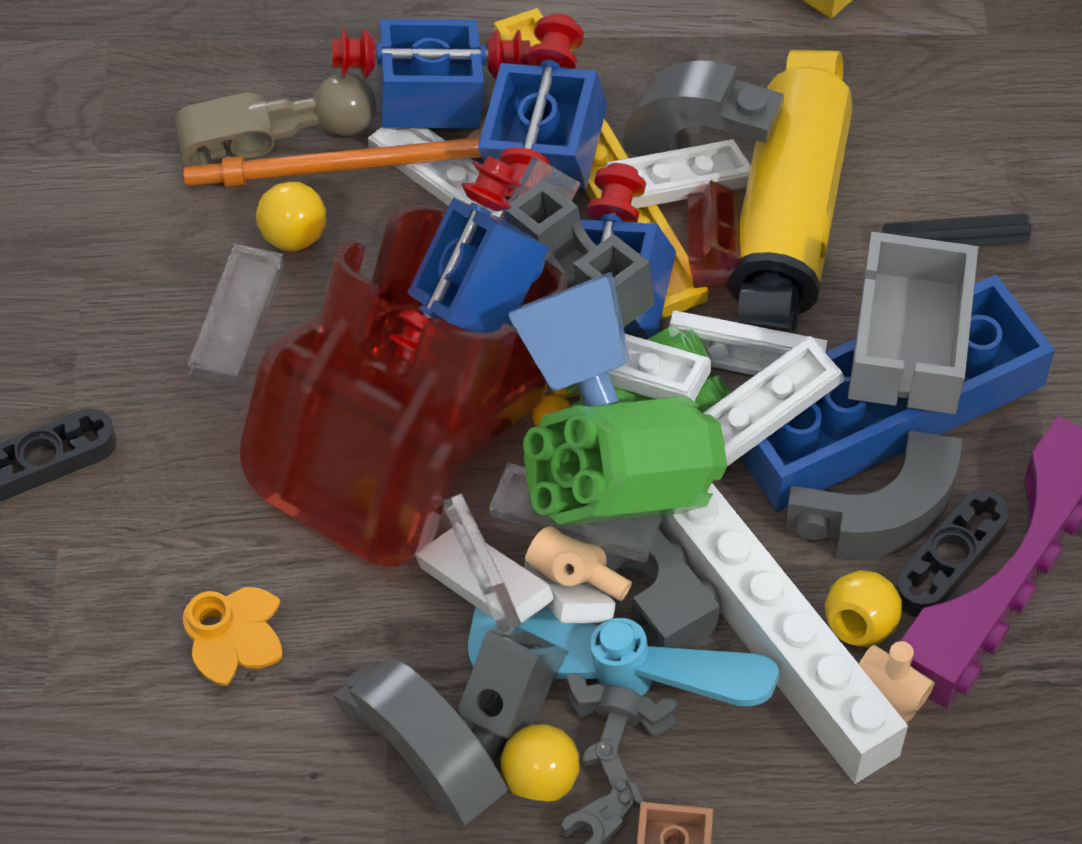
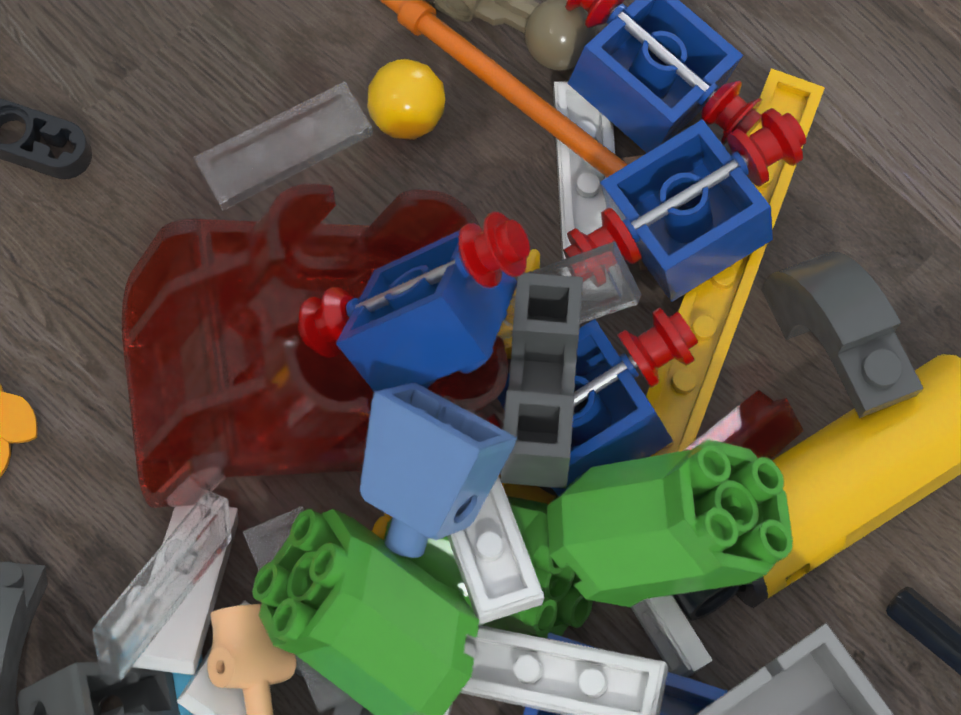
camera: 45 degrees right, 15 degrees up
(688, 171) = (768, 361): white tile -> none
(732, 269) = (671, 524): none -> bright green brick

